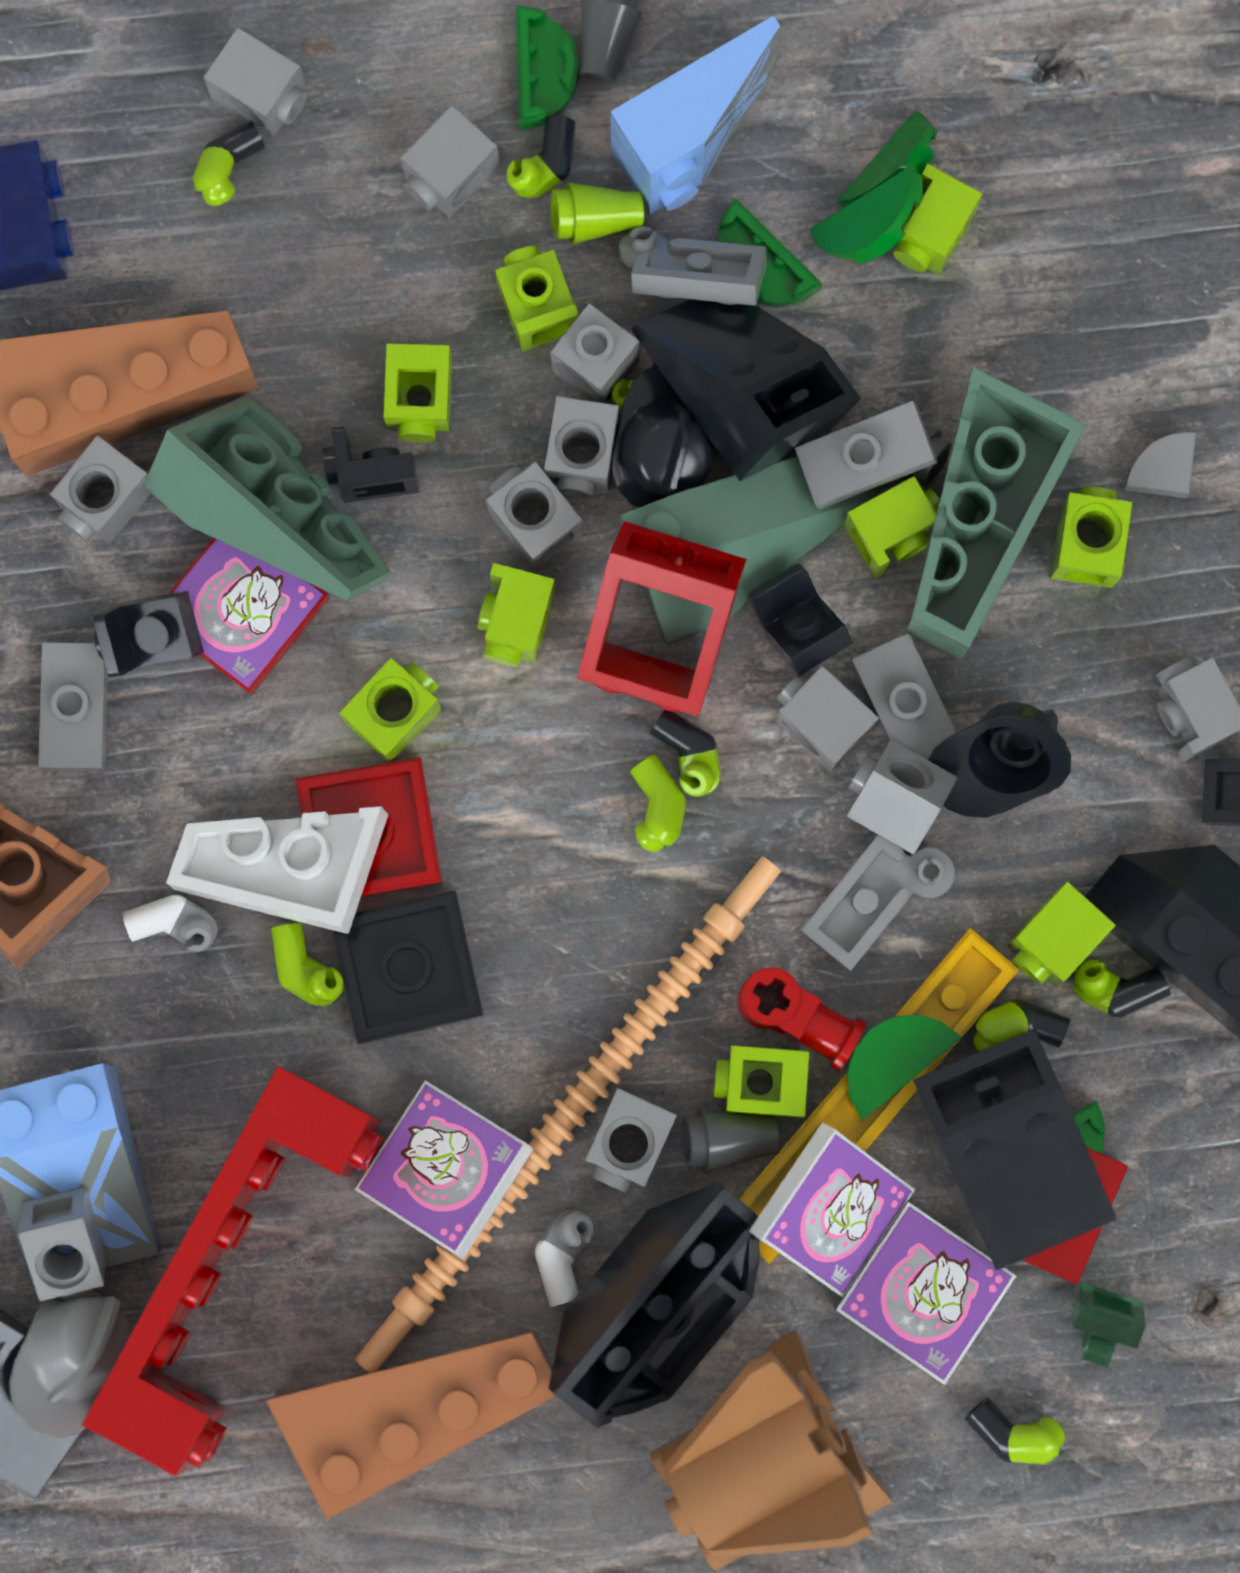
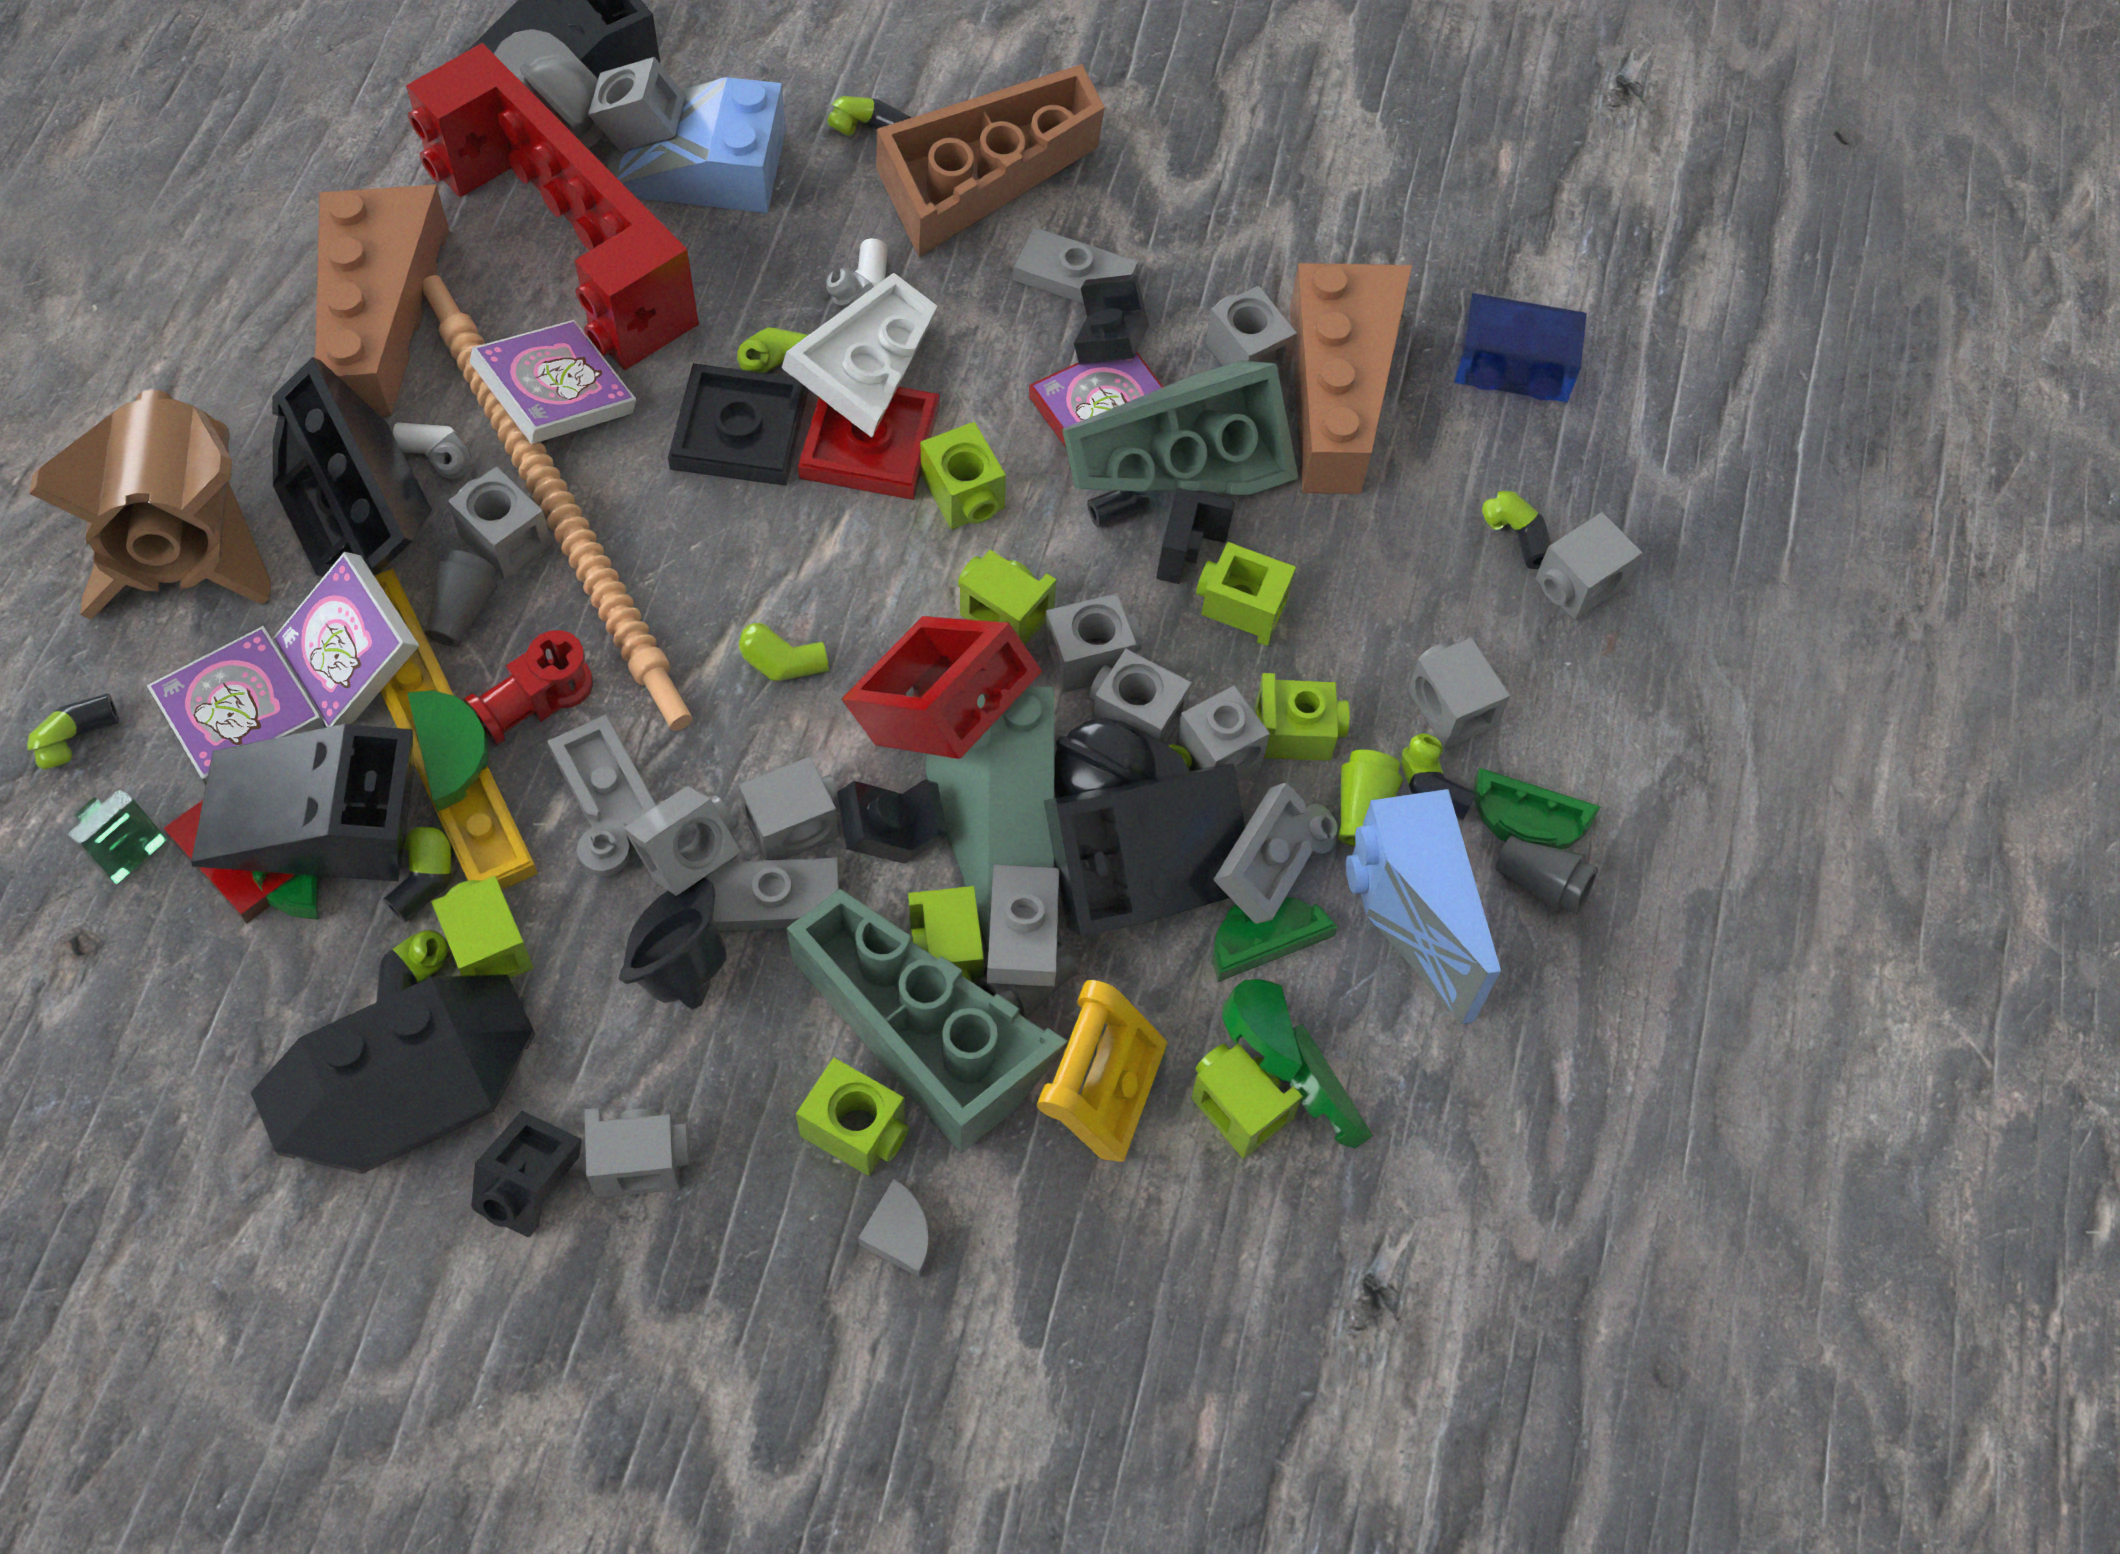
camera: 105 degrees right, 20 degrees down
(696, 752) = (809, 701): arm -> none
(788, 1076) = (485, 637): lime brick -> none
(970, 339) = (1119, 1076): none -> yellow plate

